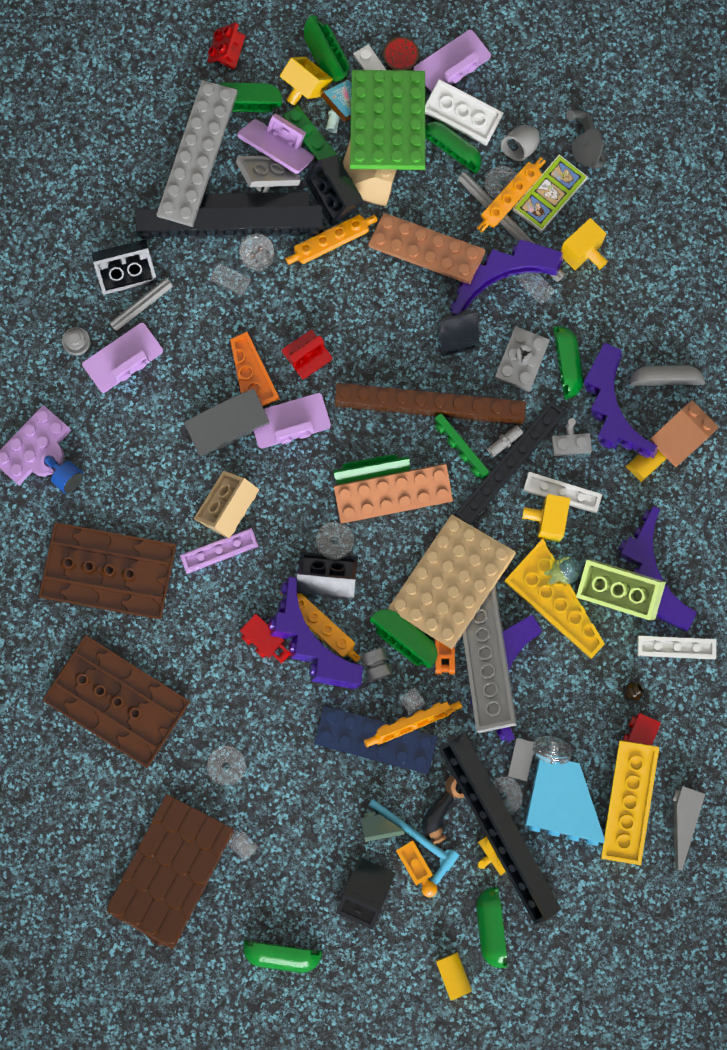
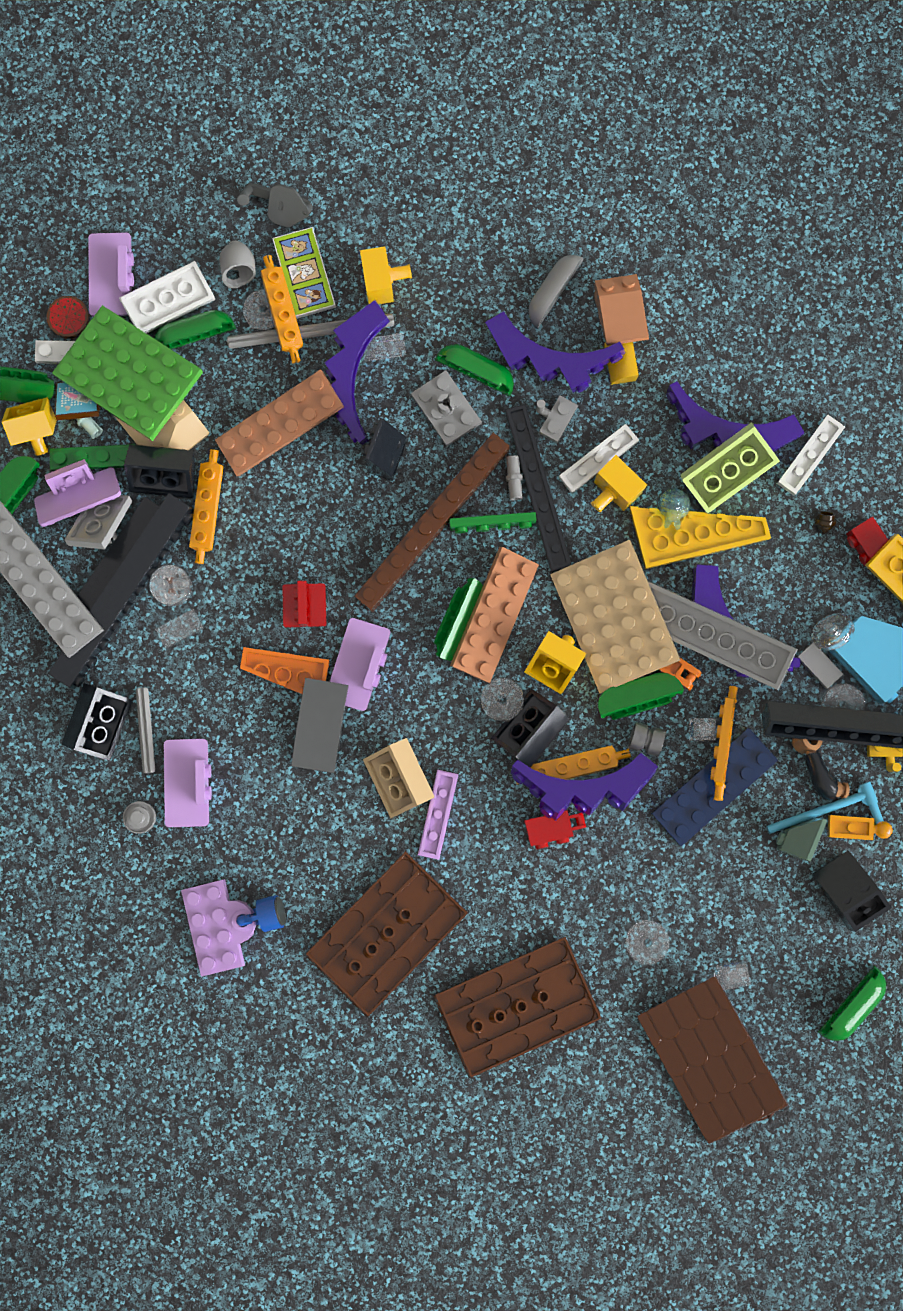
camera: 55 degrees left, 5 degrees up
(388, 558) = (555, 661): none -> yellow brick

